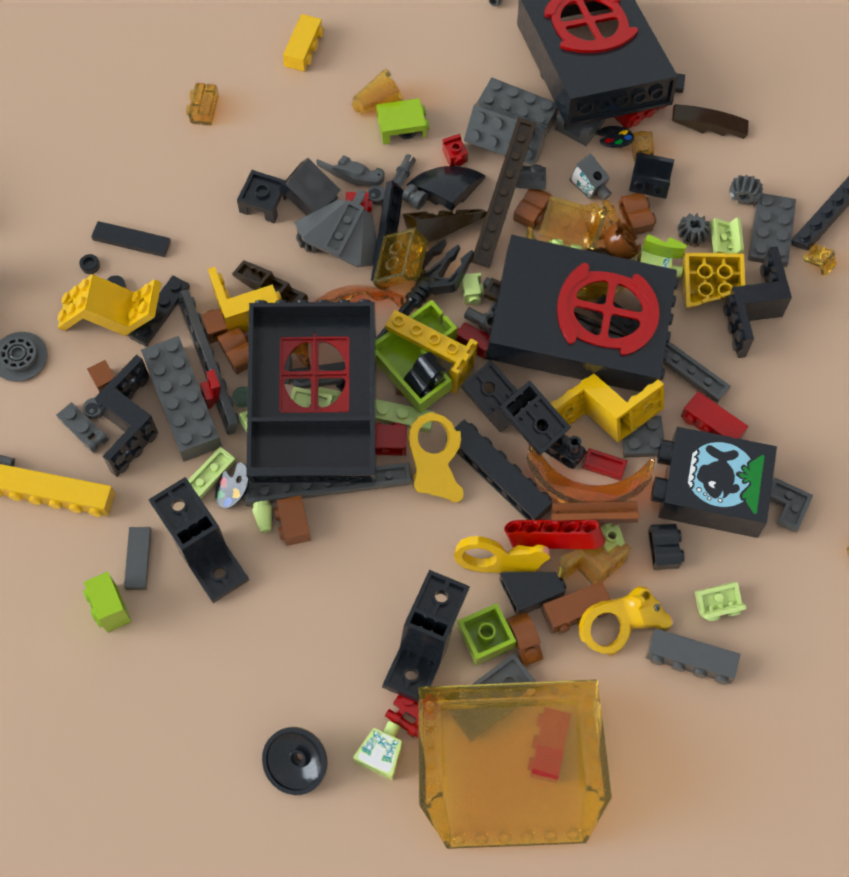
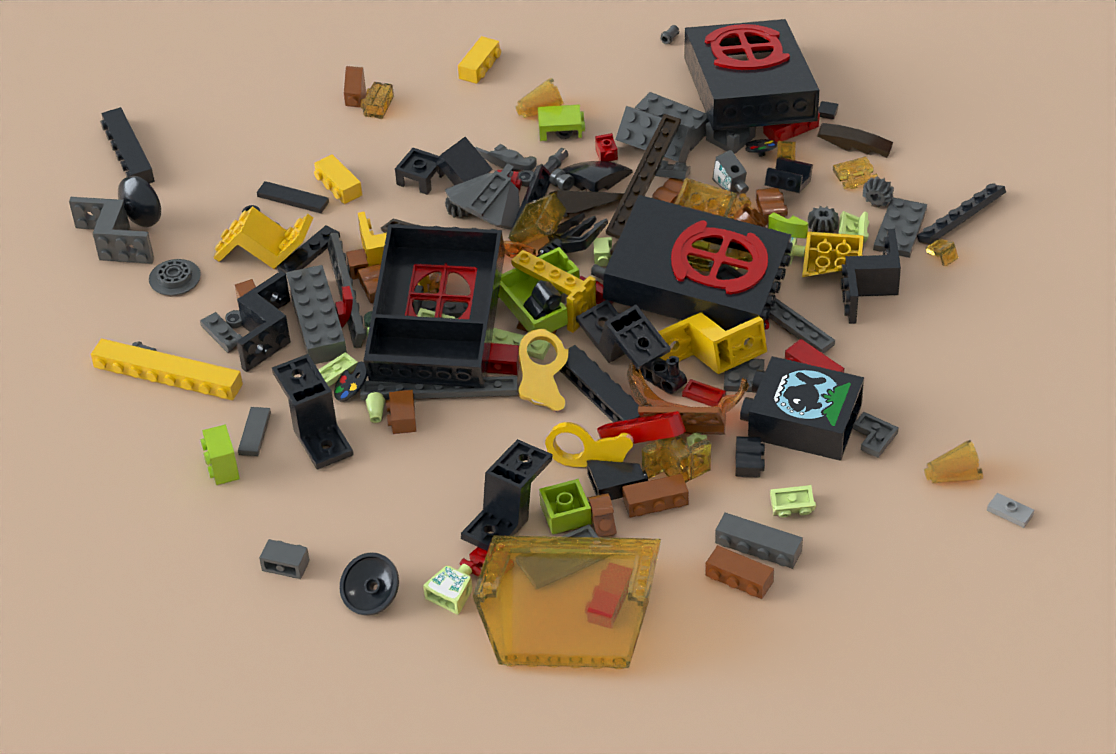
camera: 10 degrees right, 20 degrees down
(176, 90) = (354, 86): none -> dark orange slope
(176, 213) = (337, 179): none -> yellow brick
(197, 730) = (284, 559): none -> dark grey brick
(633, 611) = (706, 500): yellow animal -> none
(679, 700) = (739, 572): none -> dark orange brick
(714, 158) = (854, 168): none -> clear yellow plate

